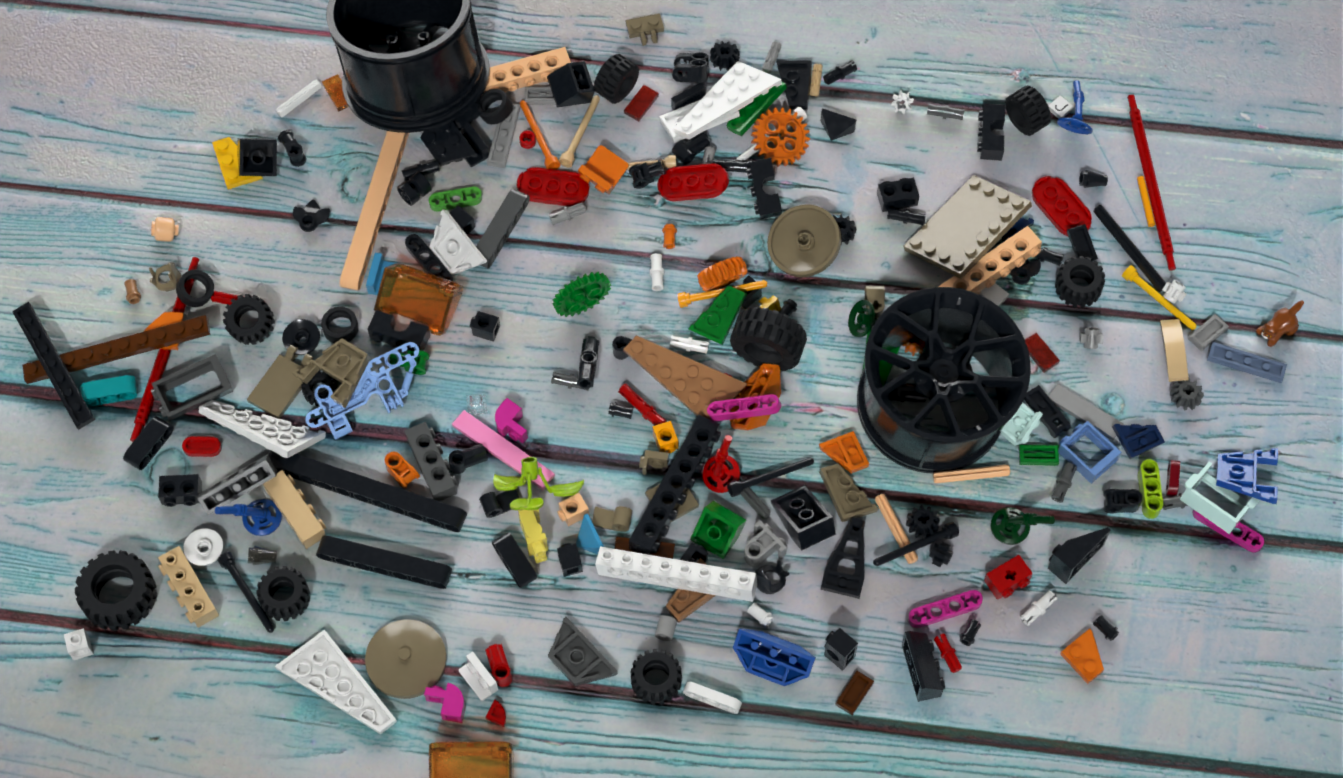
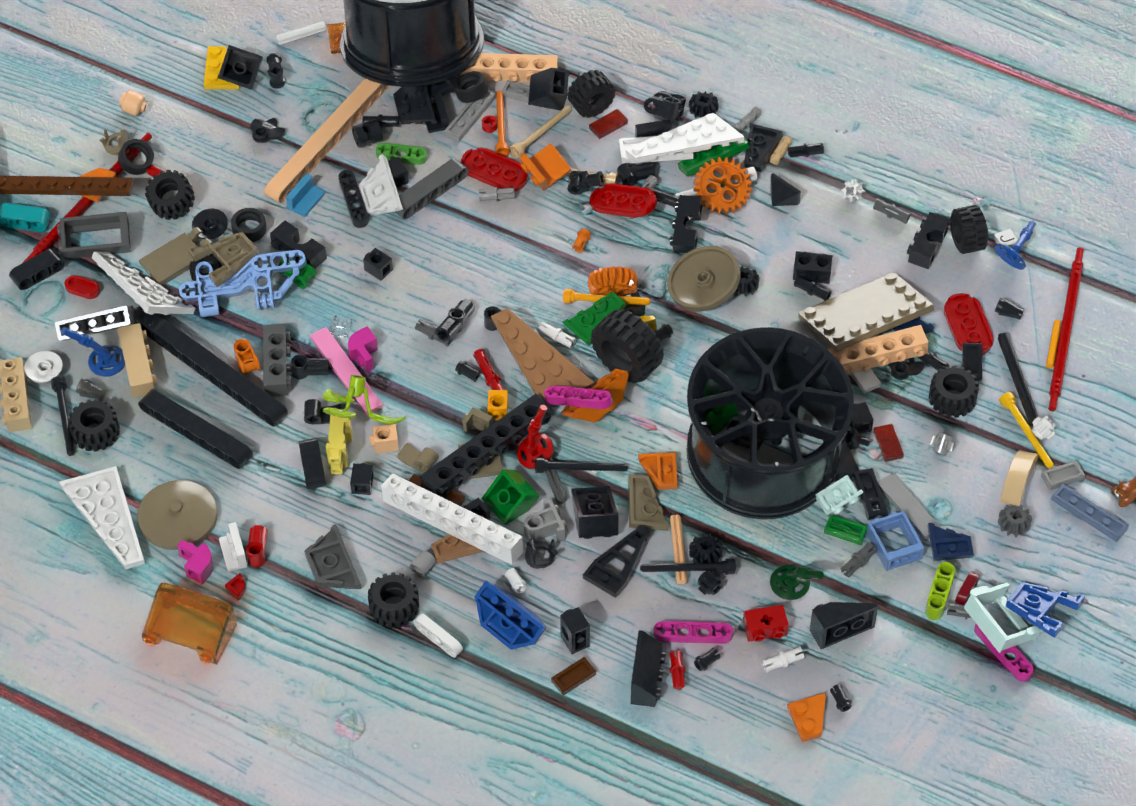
camera: 20 degrees right, 10 degrees down
(133, 295) = (81, 147): medium nougat pin -> none
(180, 485) = (44, 313): black brick -> none
(418, 296) = (327, 220): clear orange windscreen -> none
(581, 294) = (460, 258): green gear -> none
(588, 536) = (388, 463): dark azure slope -> none
(645, 26) = (641, 61): dark tan hinge -> none
(656, 272) = (555, 266): white pin -> none
(971, 473) = (772, 525): light nougat axle -> none
(1118, 501) = (906, 593): black piece -> none

